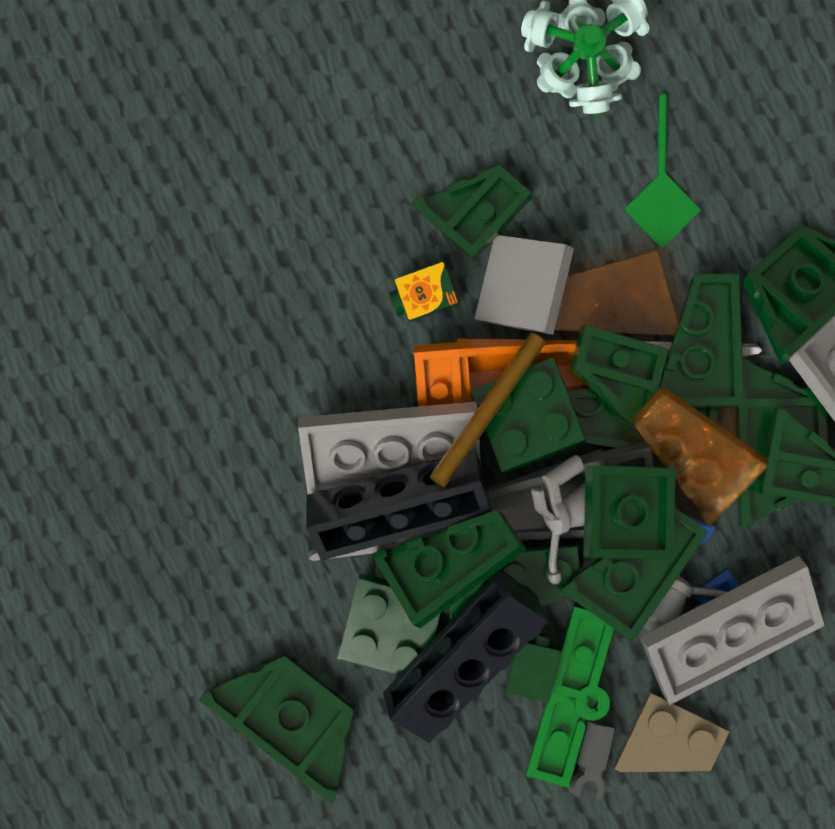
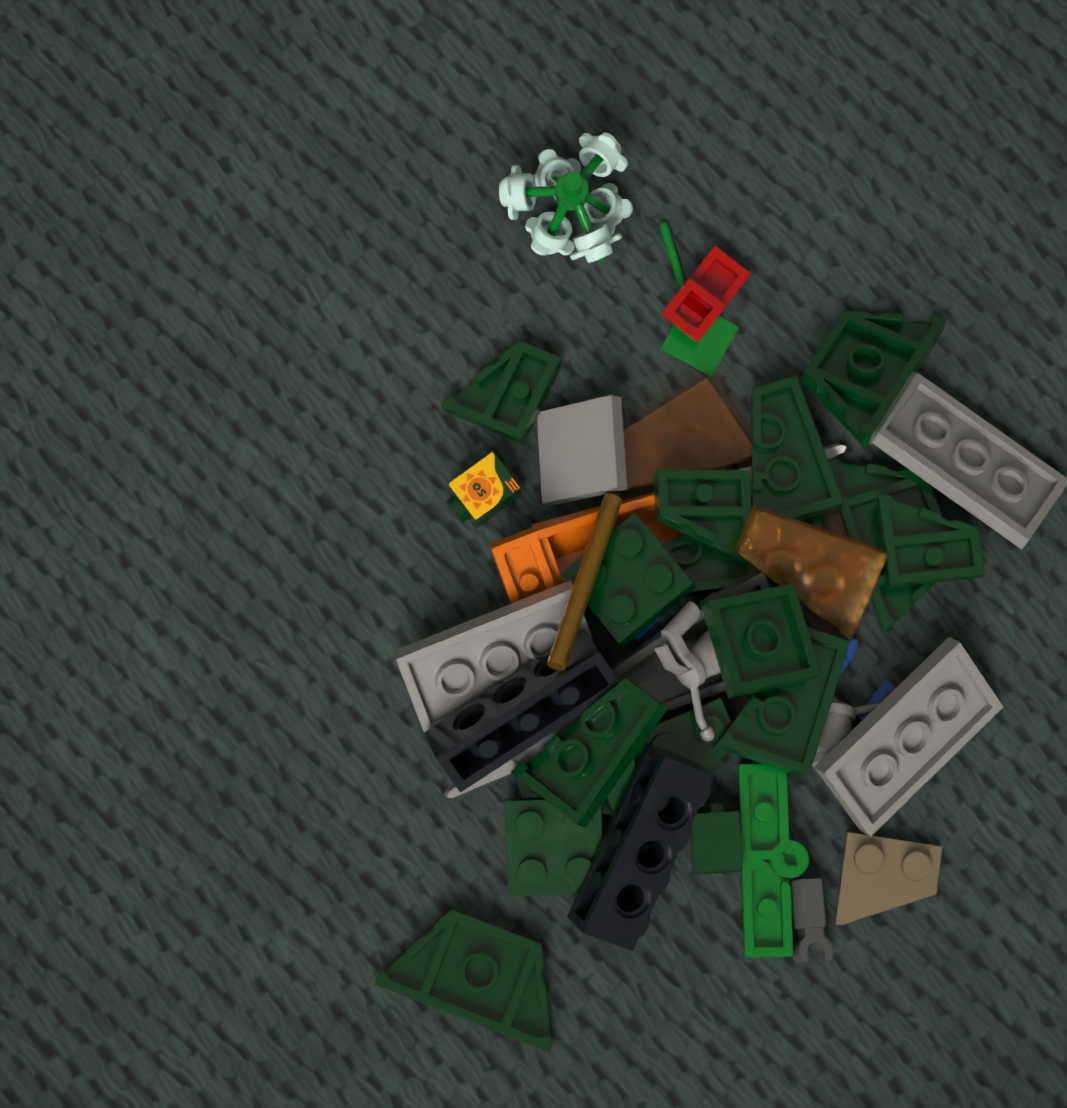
camera: 20 degrees left, 10 degrees down
(681, 172) = (705, 294): none -> red slope

